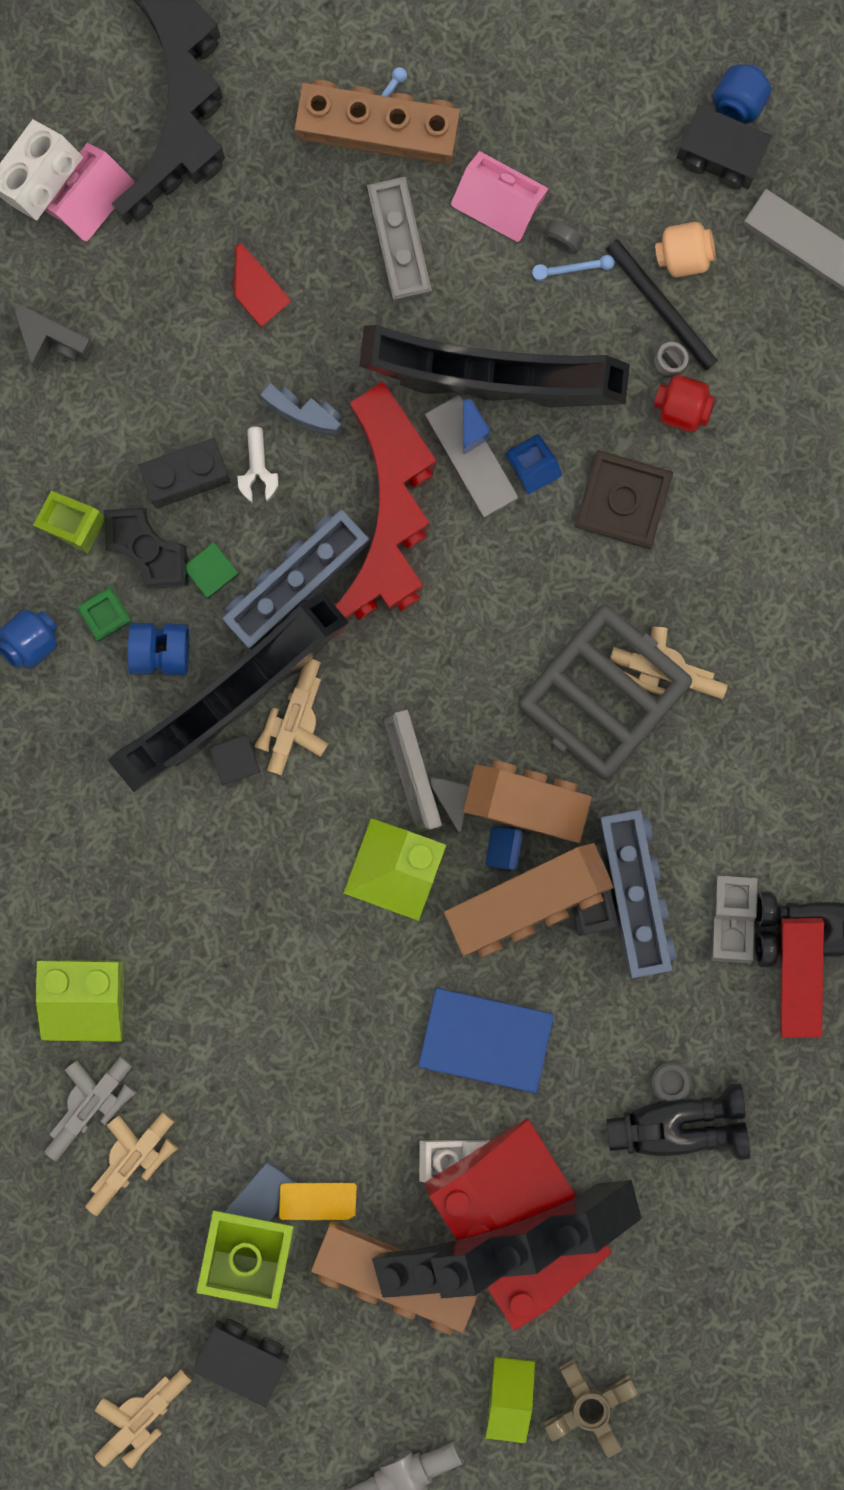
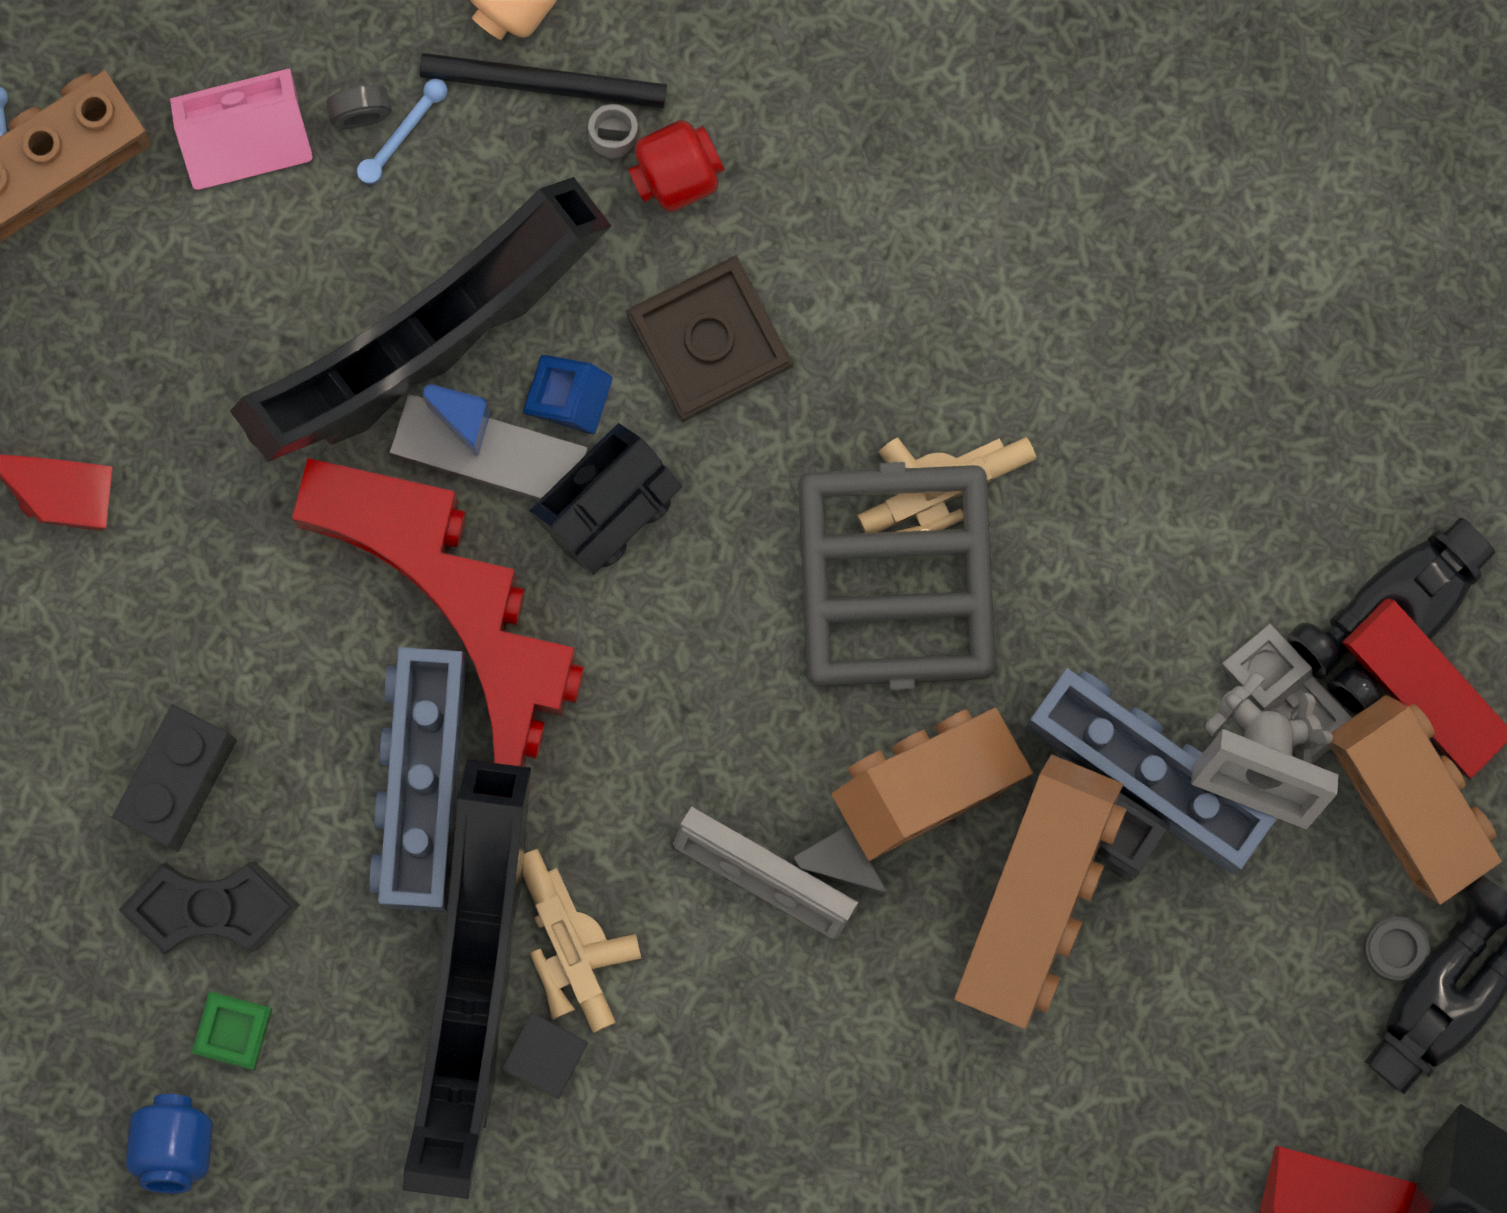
camera: 45 degrees left, 5 degrees down
(70, 521) = (90, 959): lime slope -> none
(144, 649) = (318, 1026): blue wheel -> none
(211, 570) = (310, 862): green tile -> none
(257, 467) = (252, 693): white bar -> none
(312, 416) = (263, 575): sand blue slope -> none
(395, 869) = (850, 1004): lime slope -> none
(399, 239) = (171, 282): light grey tile -> none
(486, 1040) = (1141, 1103): blue tile -> none
(503, 530) = (606, 499): none -> black brick
(504, 848) = (952, 862): blue slope -> none
(686, 940) = (1261, 765): none -> light grey piece
(745, 1022) = (1415, 798): none -> medium nougat brick

